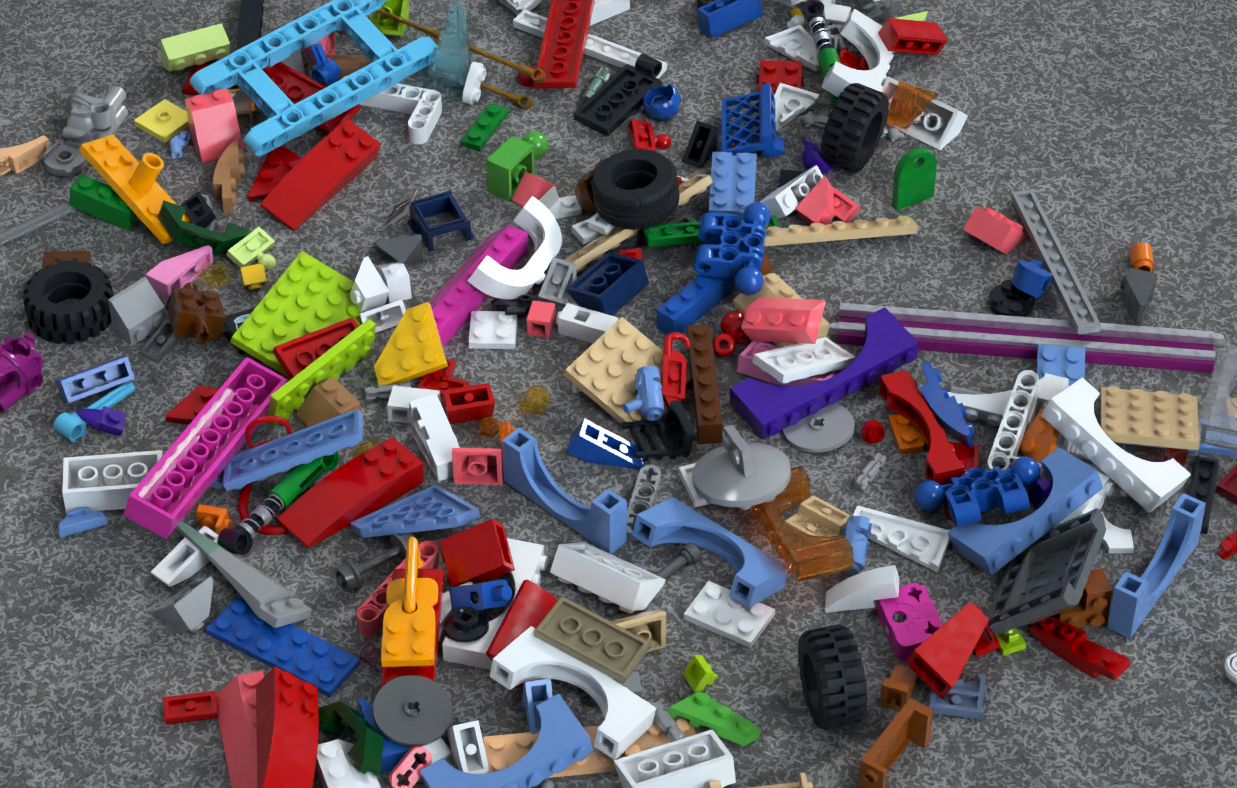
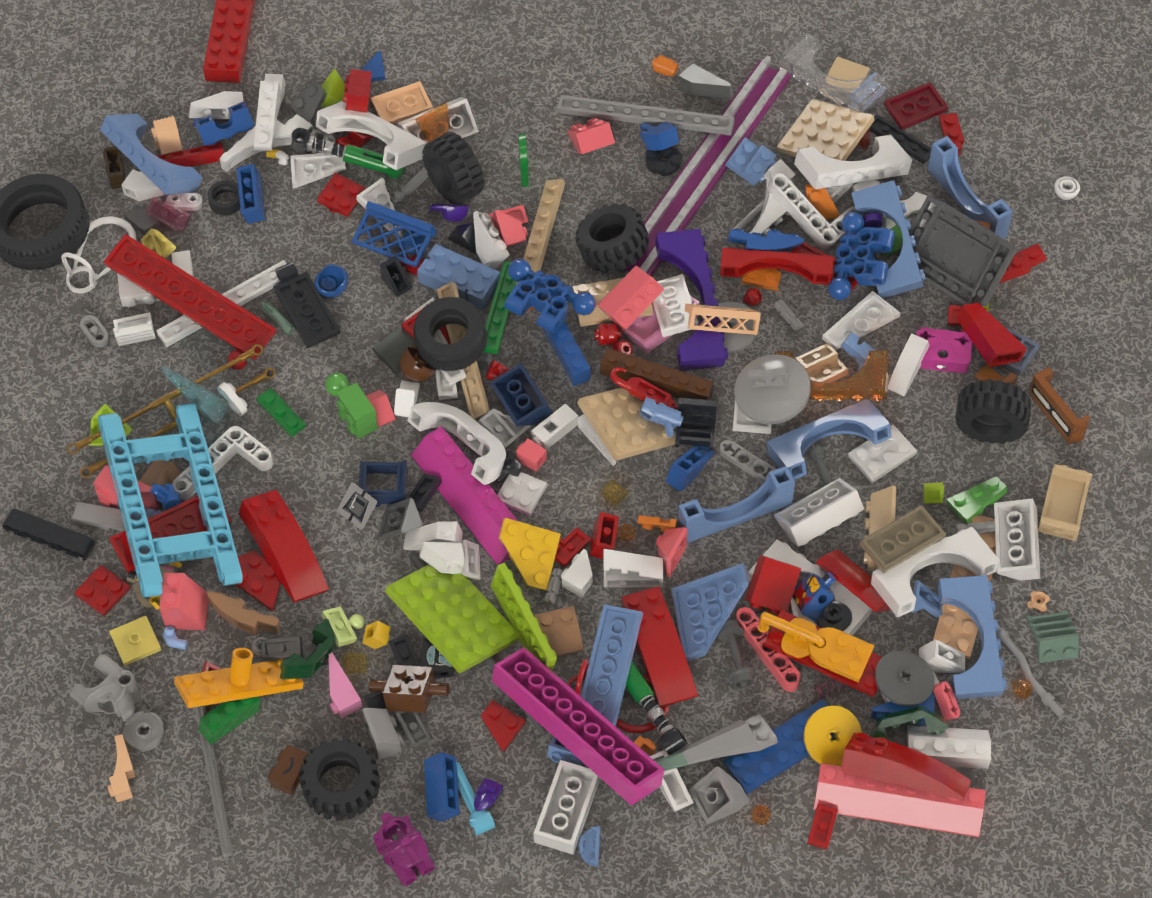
camera: 65 degrees left, 15 degrees up
(180, 646) = (760, 809): none -> clear orange plate
(194, 48) = (70, 586): yellowish green slope -> none
(246, 300) = (403, 651): none -> black plate
(303, 351) = (497, 616): red wing -> none
(322, 661) = (818, 729): none -> yellow piece
(444, 254) = (424, 490): none -> black plate
(643, 136) = (362, 310): red plate -> none
(816, 397) = (728, 312): none -> light nougat fence
(858, 279) = (604, 224): none -> black tyre
(931, 77) = (401, 103): none -> light nougat plate
(960, 48) = (375, 66): none -> blue tile

